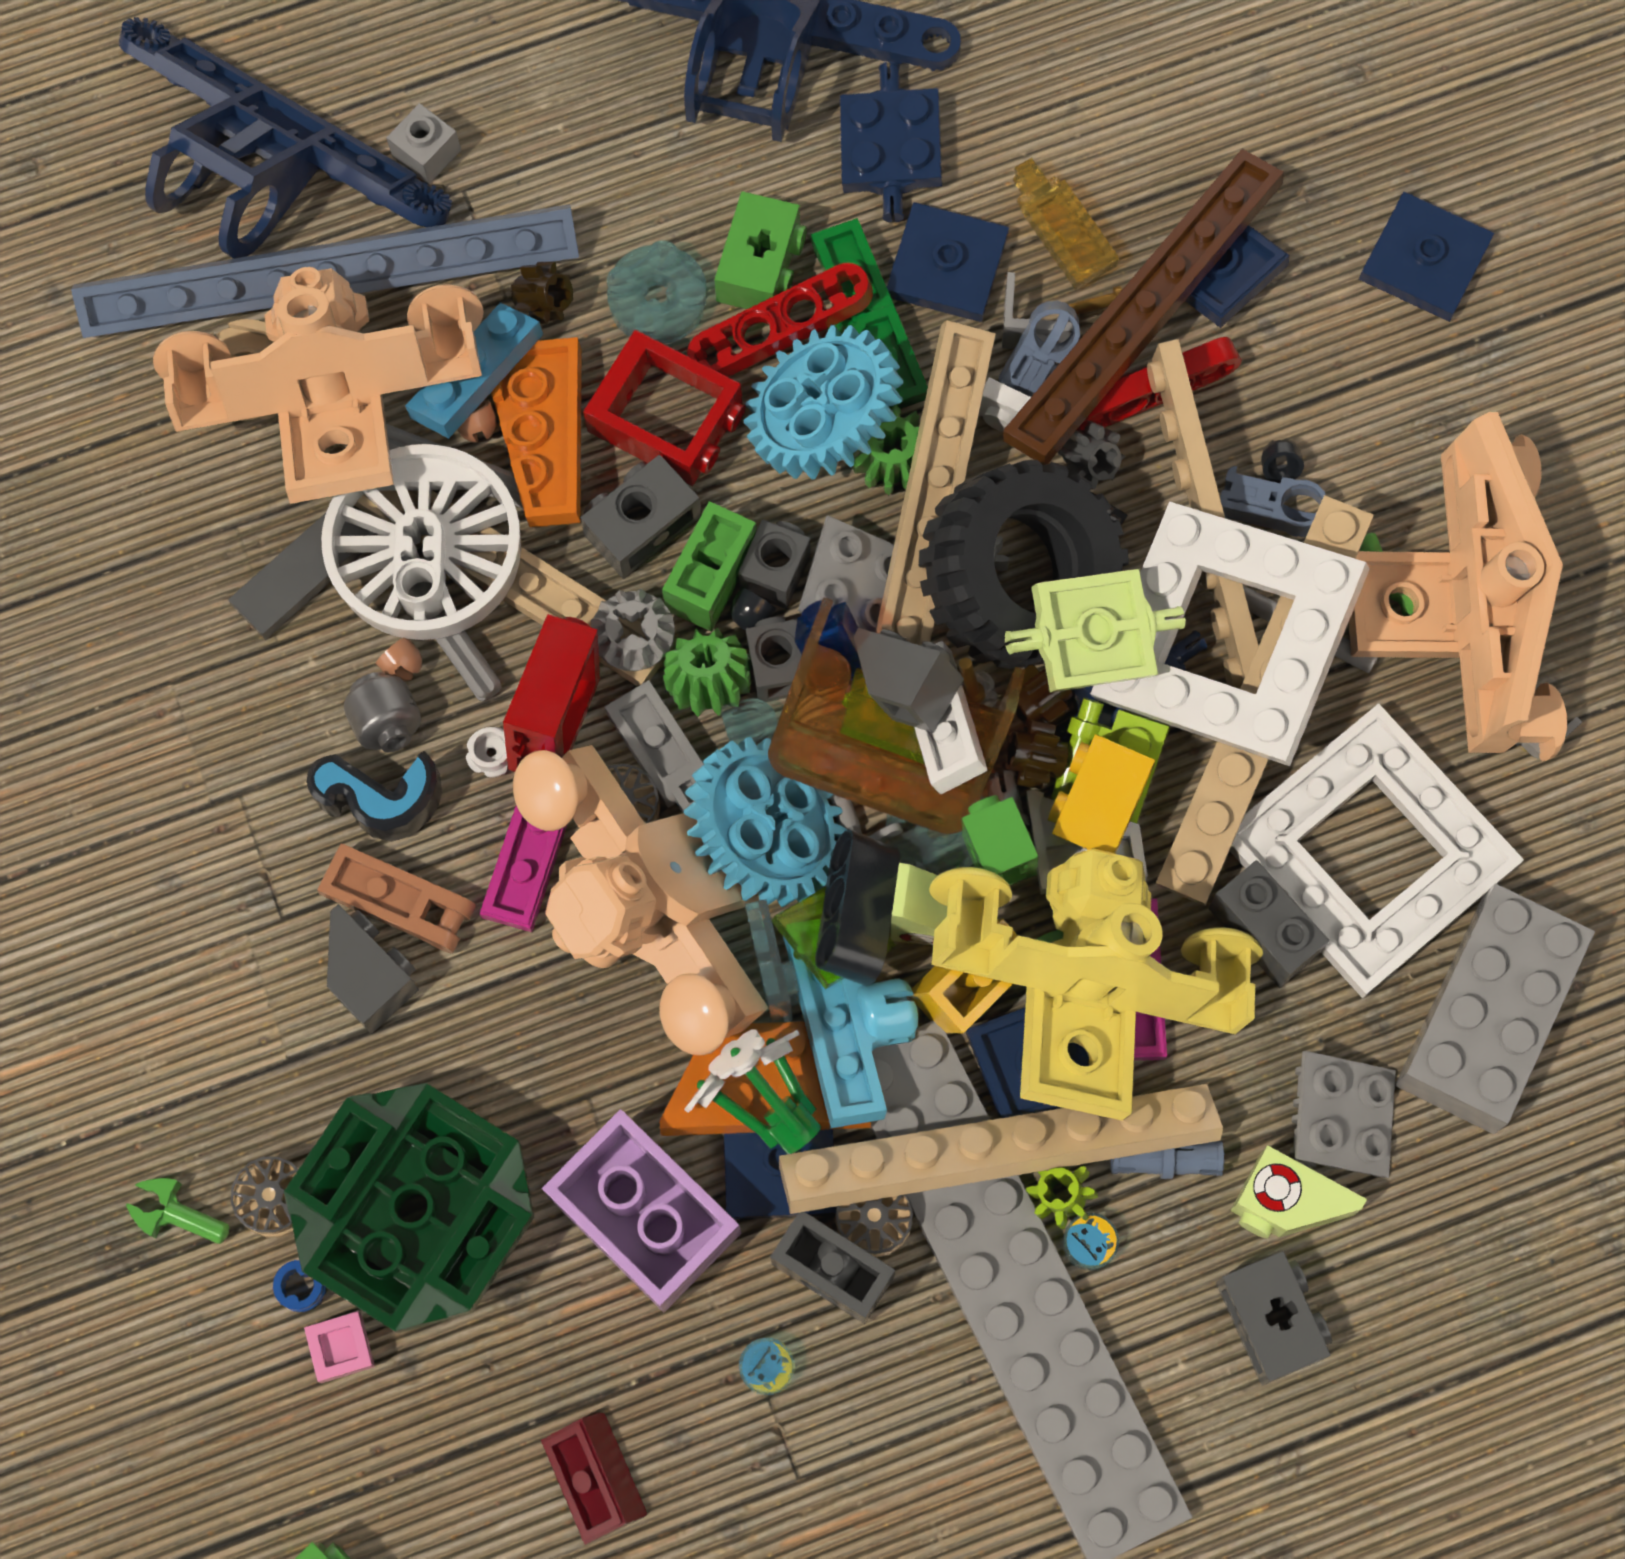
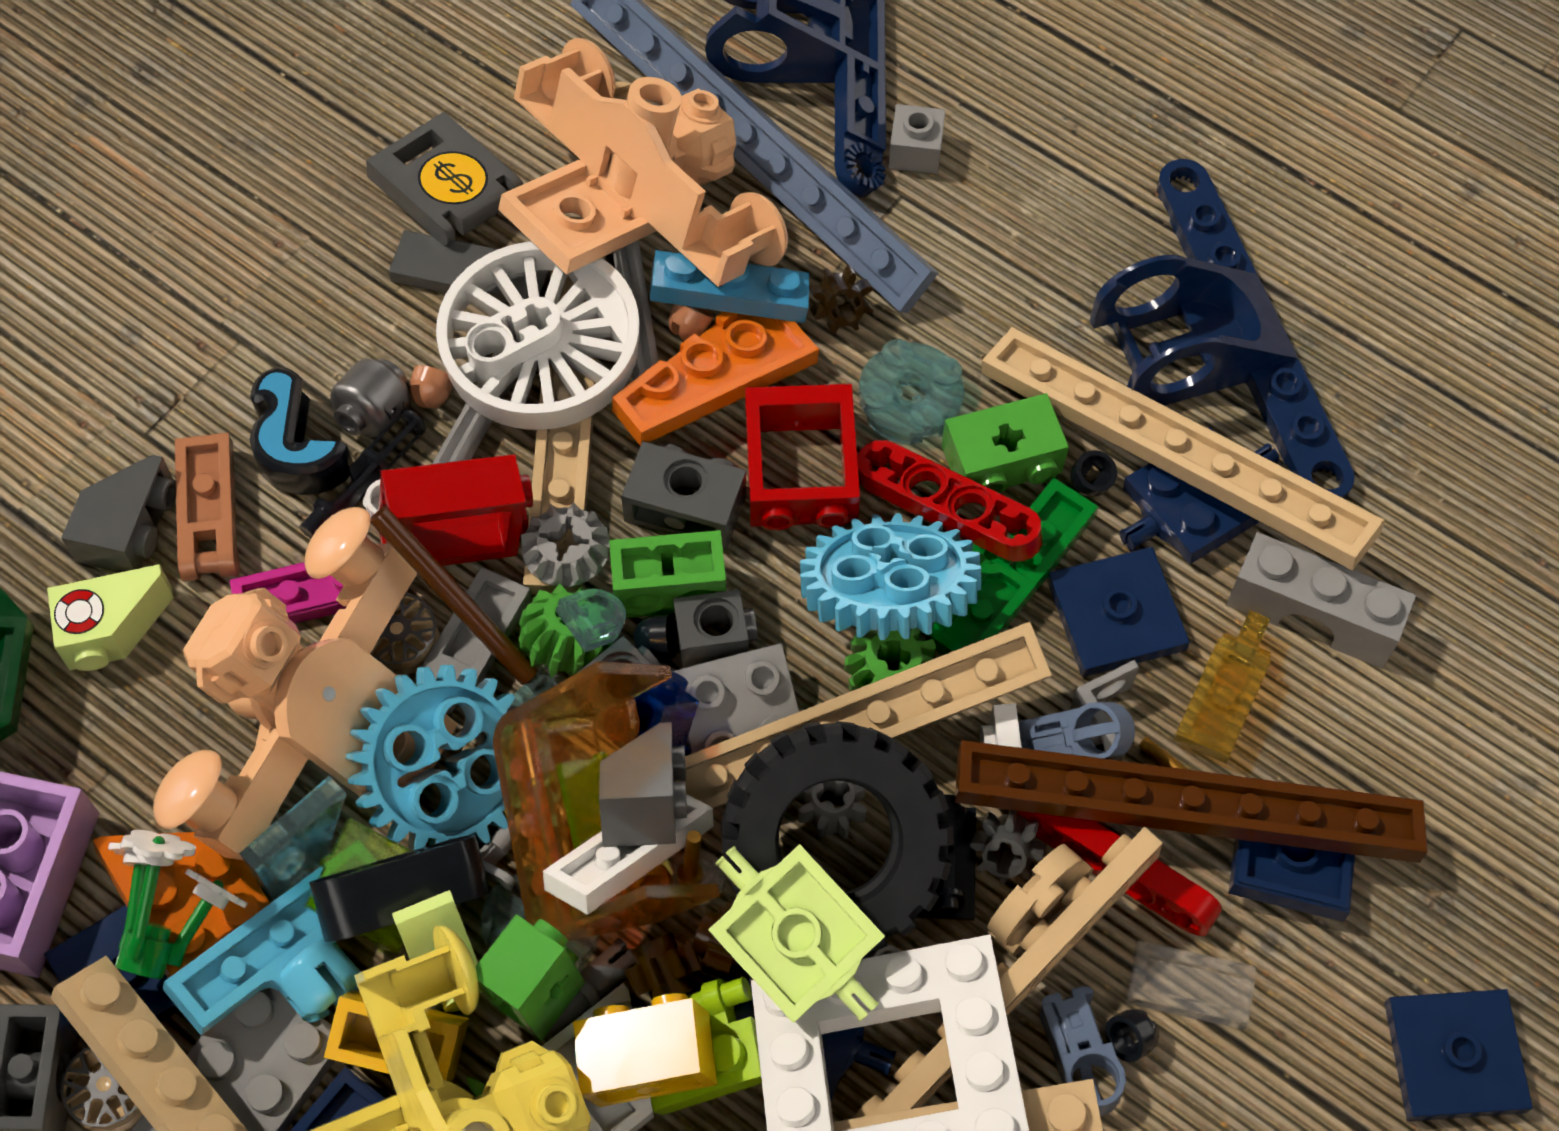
camera: 55 degrees right, 10 degrees down
(208, 535) = (450, 180): none -> dark grey container
(447, 755) = (364, 472): none -> black piece
(450, 1030) = (106, 615): none -> yellowish green slope
(634, 733) = (453, 595): none -> reddish brown piece
(720, 640) = (592, 617): none -> clear light blue tile
(832, 204) = (1102, 482): none -> black hinge
(850, 126) = (1185, 449): none -> tan plate
(1007, 128) = (1358, 609): none -> light grey arch
(1152, 453) = (1037, 898): none -> tan plate
(1268, 398) = (1191, 985): none -> clear tile

